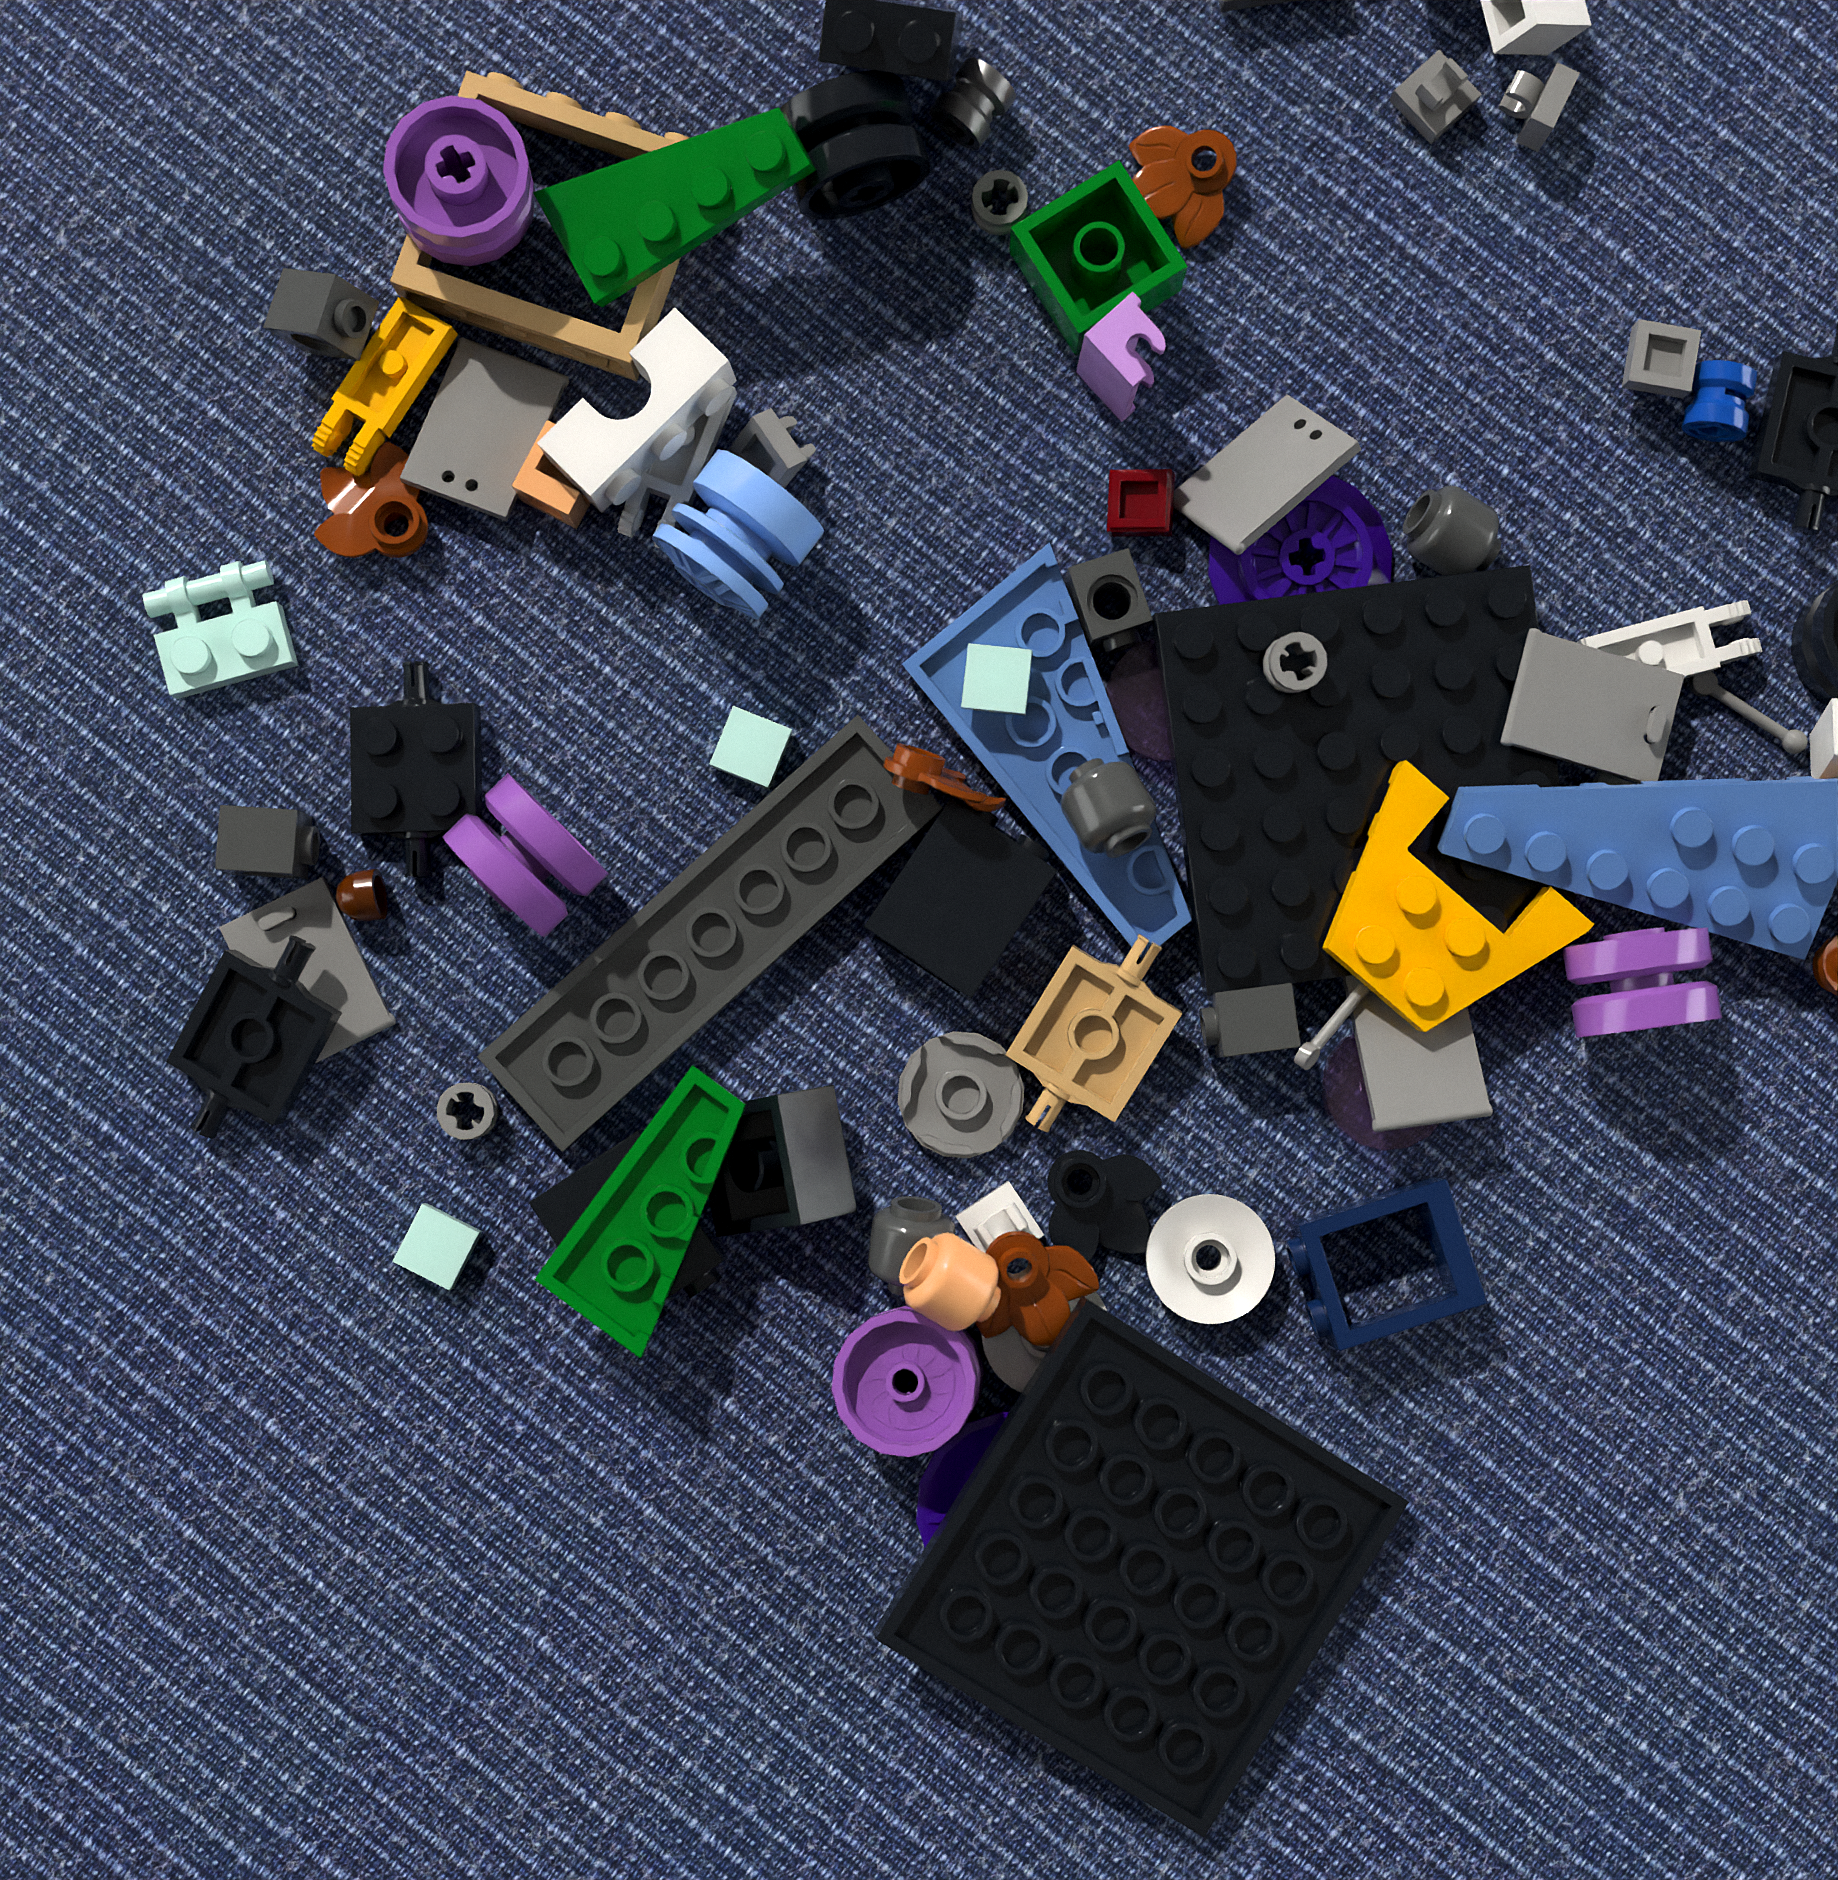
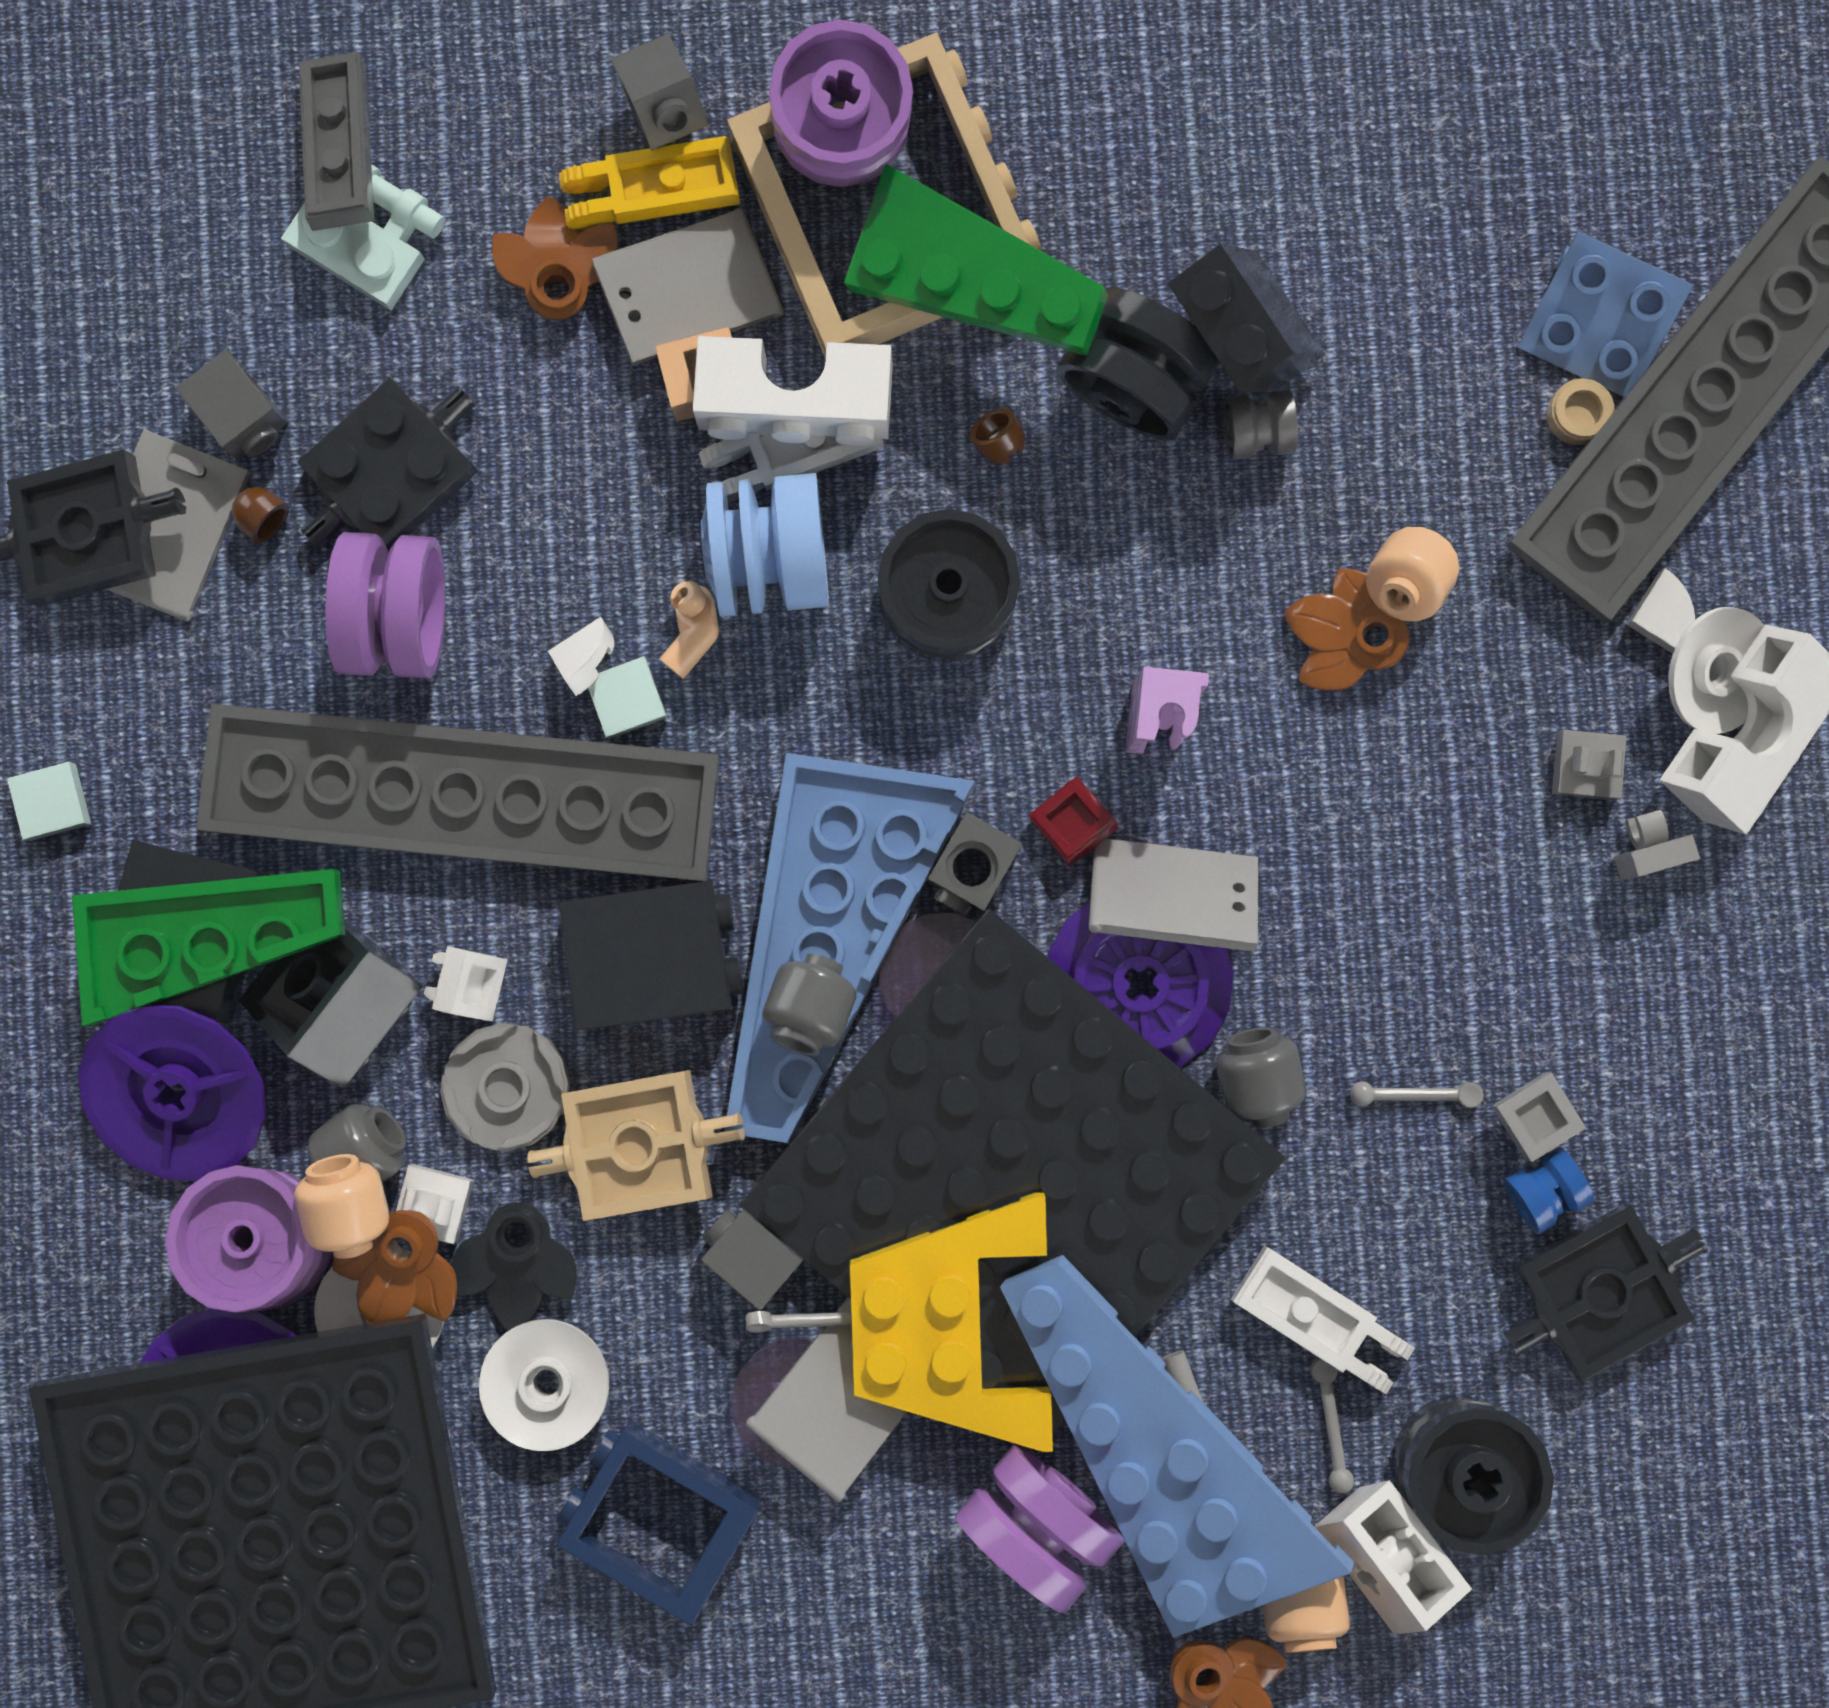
camera: 50 degrees right, 0 degrees up
(135, 587) = (336, 141): none -> dark grey tile
(453, 1124) = (148, 730): light grey bush -> none
(691, 751) = (581, 654): none -> white tile
(745, 648) = (696, 625): none -> light nougat arm
(770, 448) = (857, 512): light grey tile -> none
(775, 1367) = (143, 1120): none -> dark purple piece
(809, 289) = (998, 436): none -> reddish brown hinge
(860, 1051) = (467, 983): none -> white tile
(897, 396) = (927, 554): none -> black wheel
(921, 769) = (716, 846): dark orange plate -> none
(983, 193) = (1205, 492): light grey bush -> none
(996, 679) = (834, 834): light aqua tile -> none
(1094, 252) = (1226, 620): green brick -> none
(1184, 91) = (1412, 574): none -> light nougat head
(1302, 644) = (1061, 1041): light grey bush -> none
(1591, 708) = (1218, 1302): light grey container -> none
(1594, 401) = (1467, 1094): none -> light grey hinge

